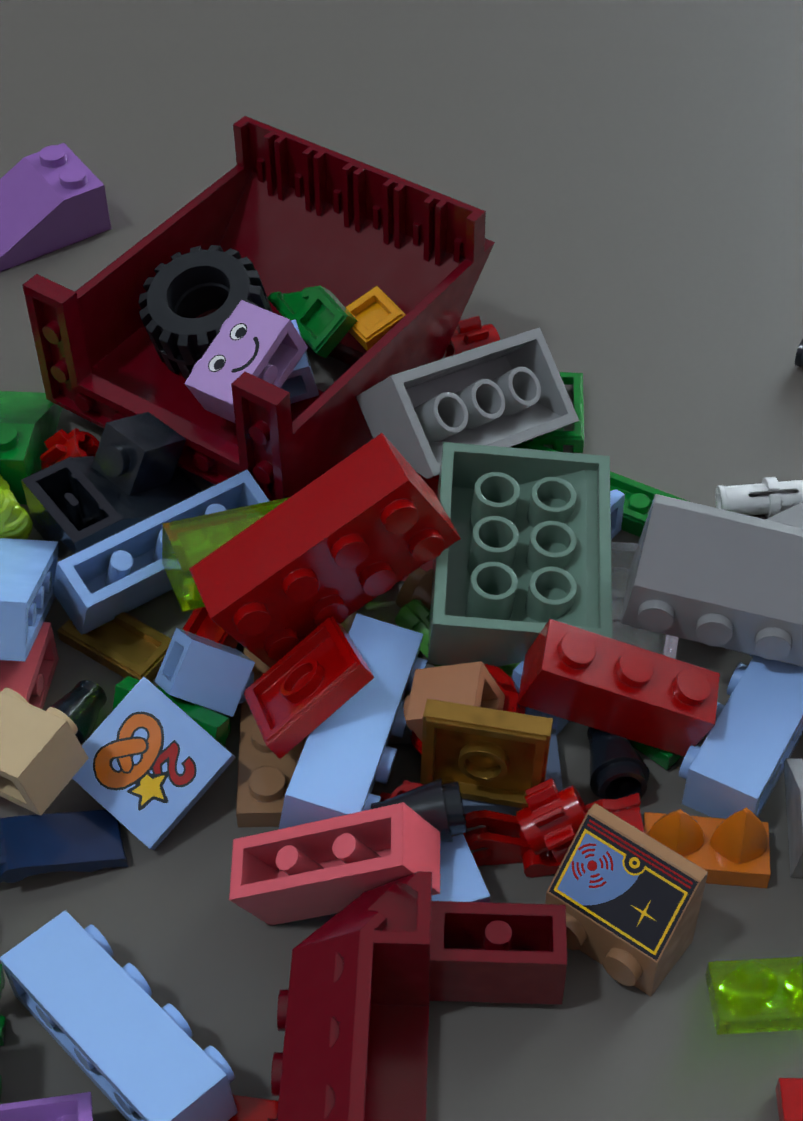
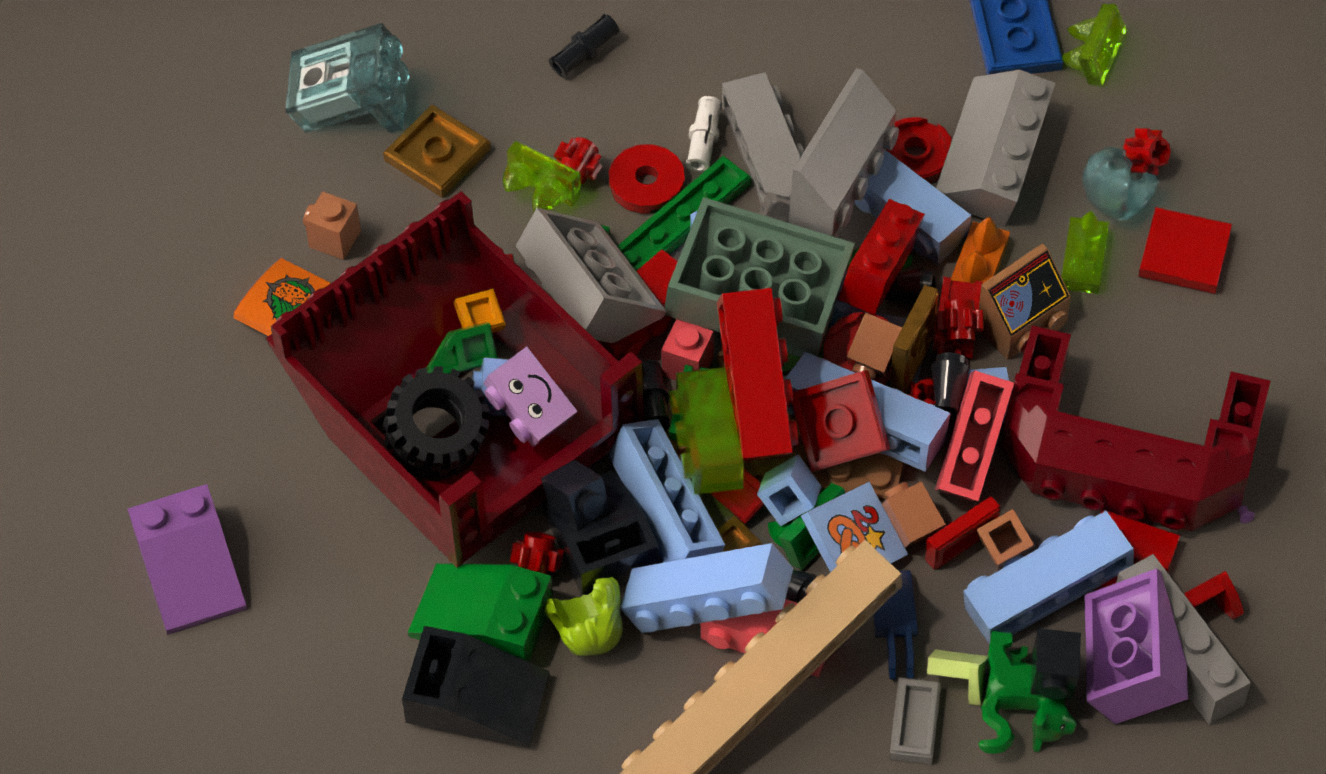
camera: 75 degrees left, 10 degrees up
(172, 957) = (1005, 539): none -> nougat brick
(191, 906) = (960, 533): none -> red tile
(200, 827) = (912, 513): none -> nougat brick
(495, 201) = (332, 225): none -> nougat brick
(624, 370) = (550, 178): none -> clear neon green tile
(632, 285) = (437, 150): none -> pearl gold tile
(664, 386) = (581, 156): none -> red gear
(680, 441) = (640, 161): none -> red tile
(682, 193) = (349, 79): none -> clear light blue brick

